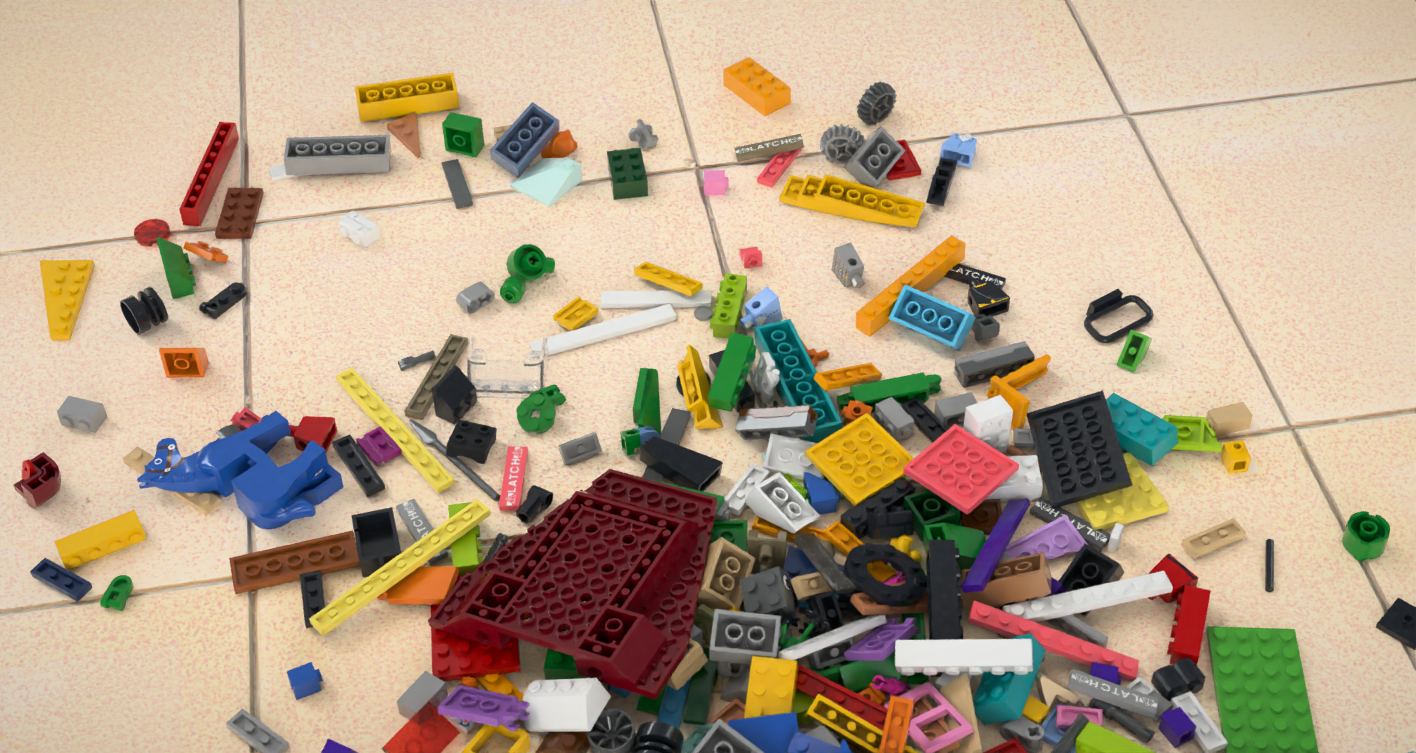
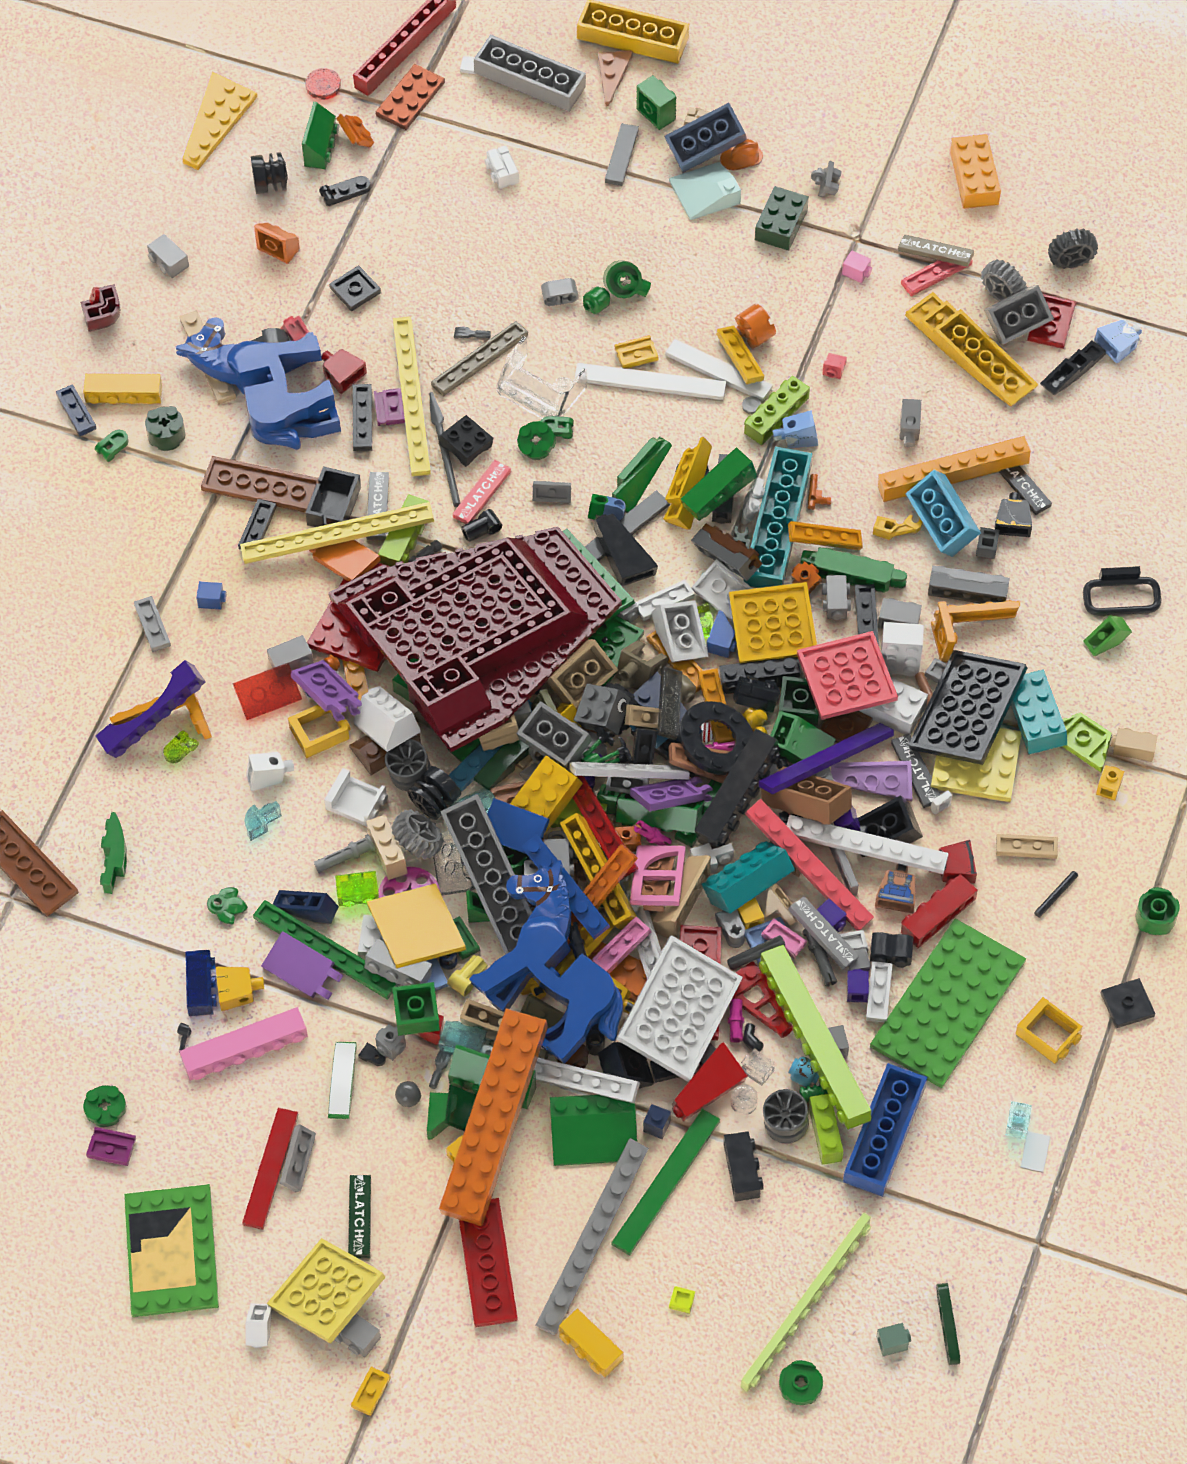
camera: 30 degrees right, 15 degrees up
(166, 554) = (165, 428): none -> brick
(283, 368) = (355, 288): none -> plate
(453, 395) = (477, 388): black slope -> none
(666, 250) = (754, 325): none -> orange brick
(892, 351) = (896, 529): none -> yellow piece
(964, 656) = (714, 841): white brick -> none
(1141, 627) = (897, 890): none -> torso
(1373, 664) = (1059, 1017): none -> yellow window

